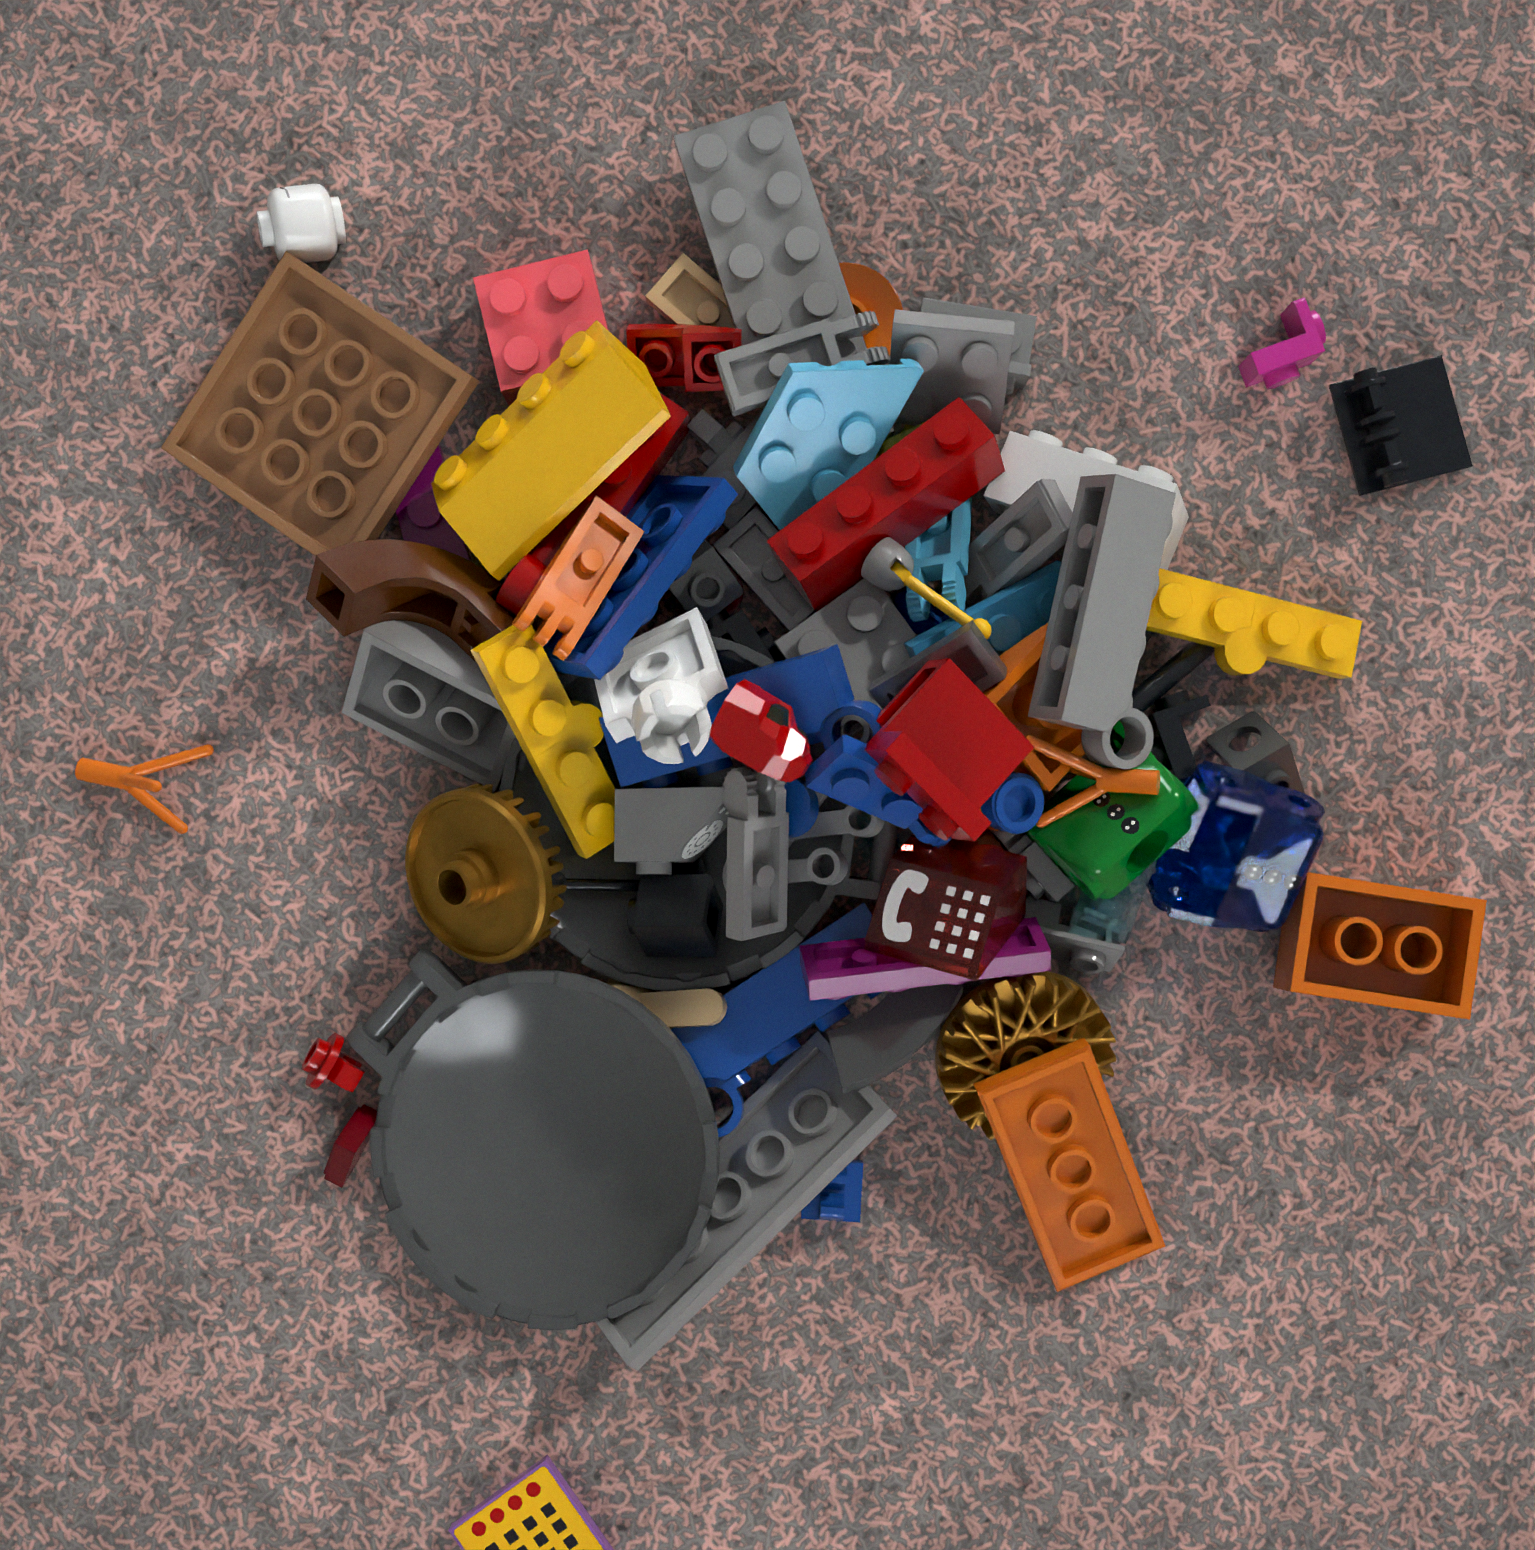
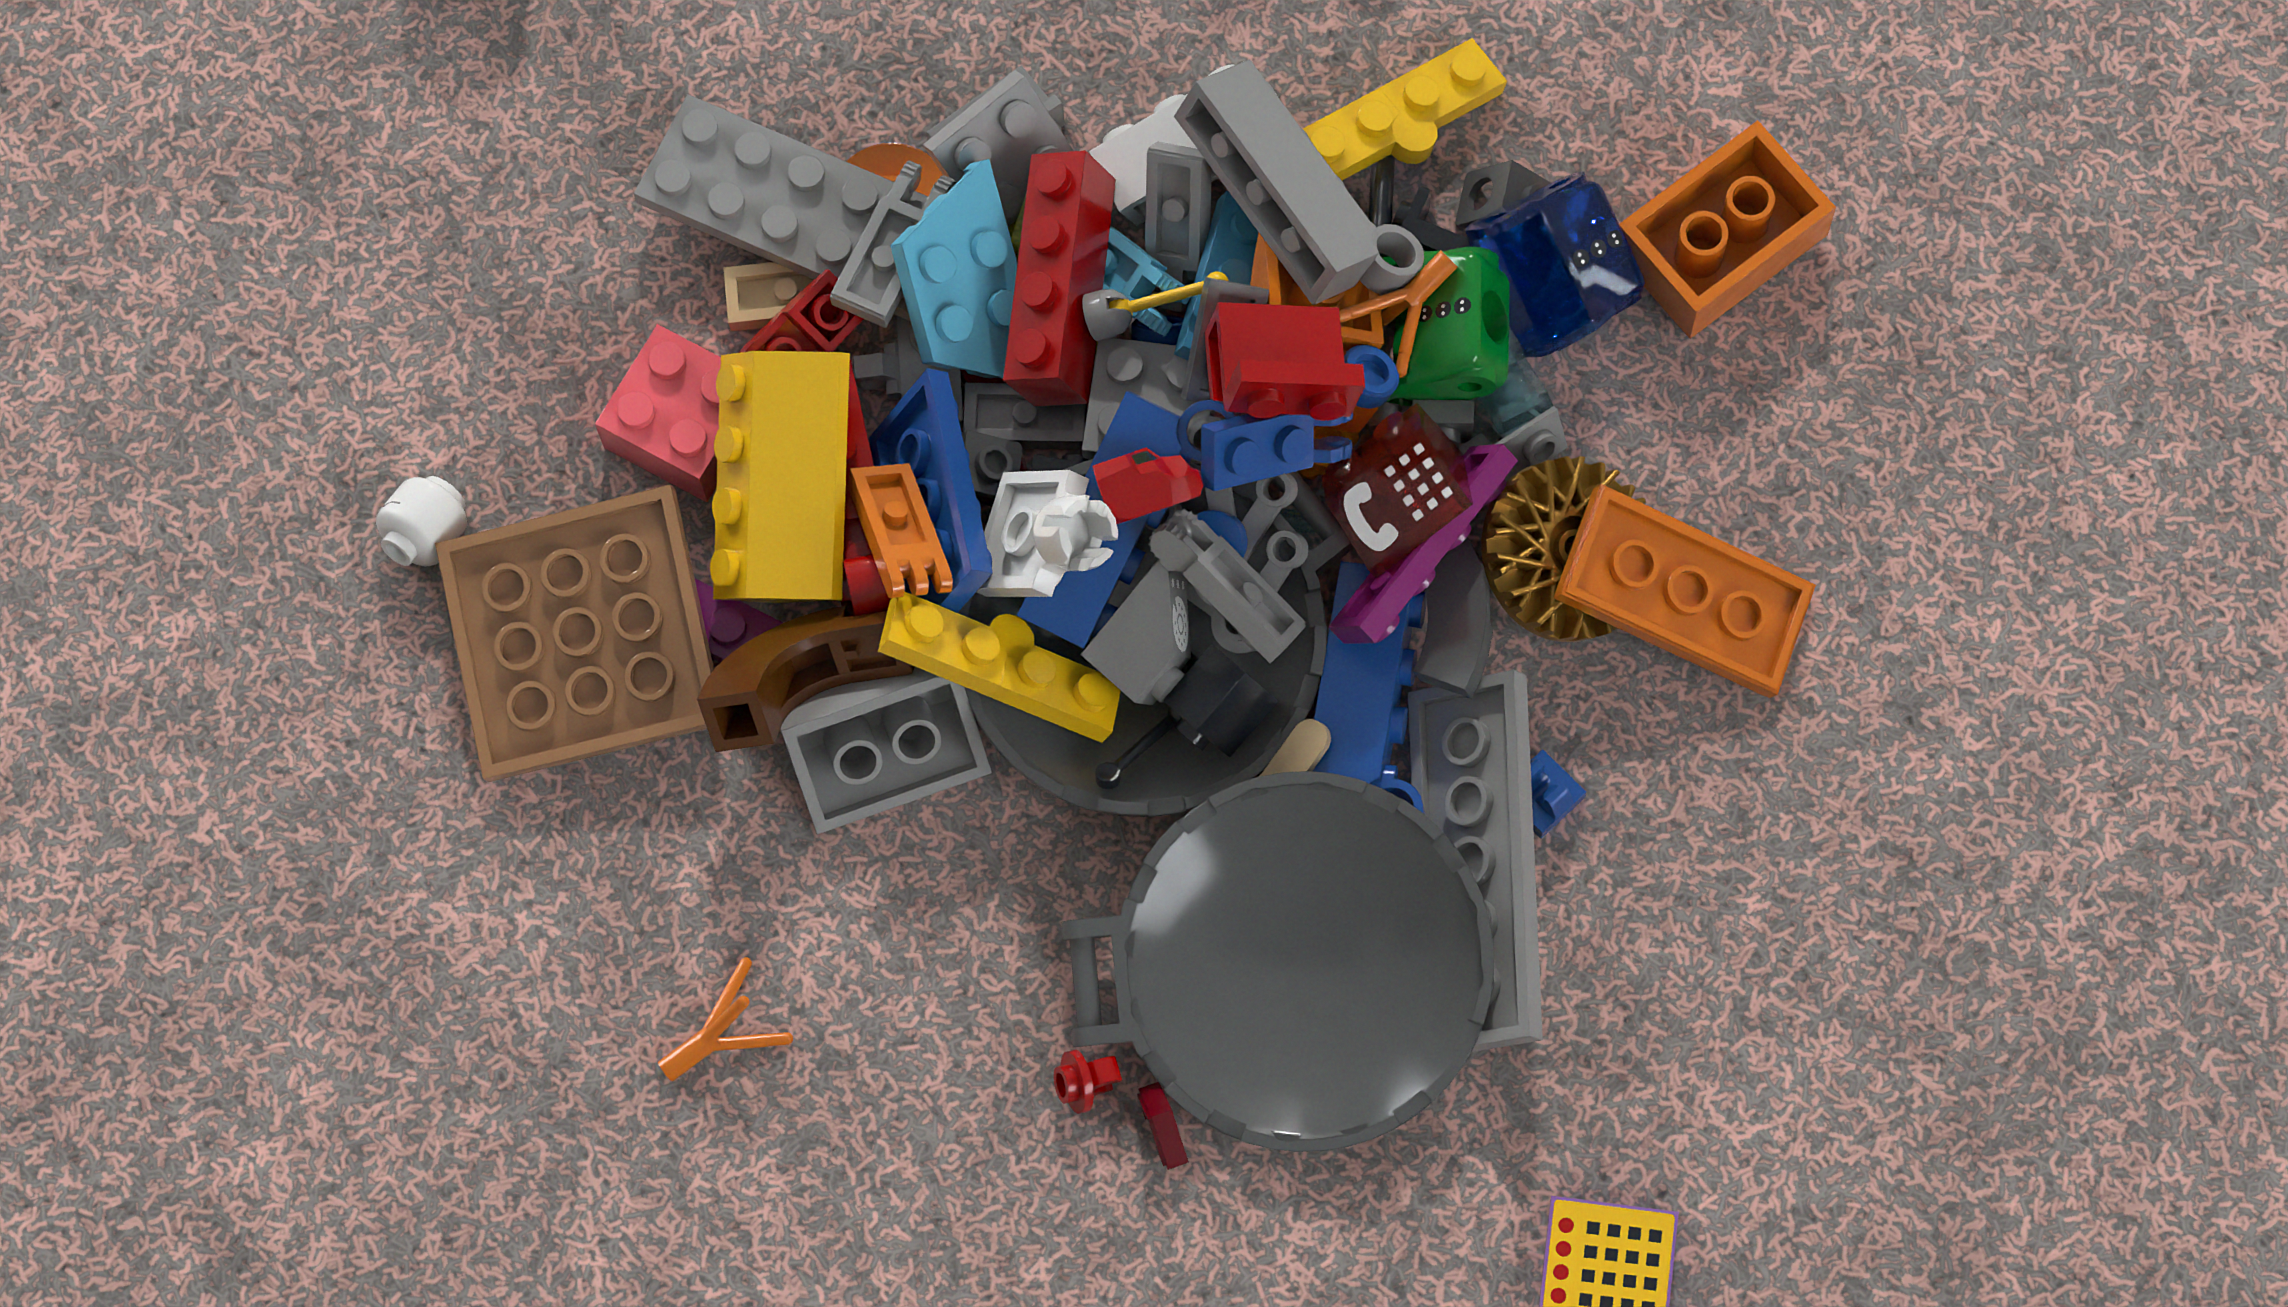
camera: 45 degrees left, 15 degrees down
(482, 874) = (1074, 787): pearl gold wheel -> none

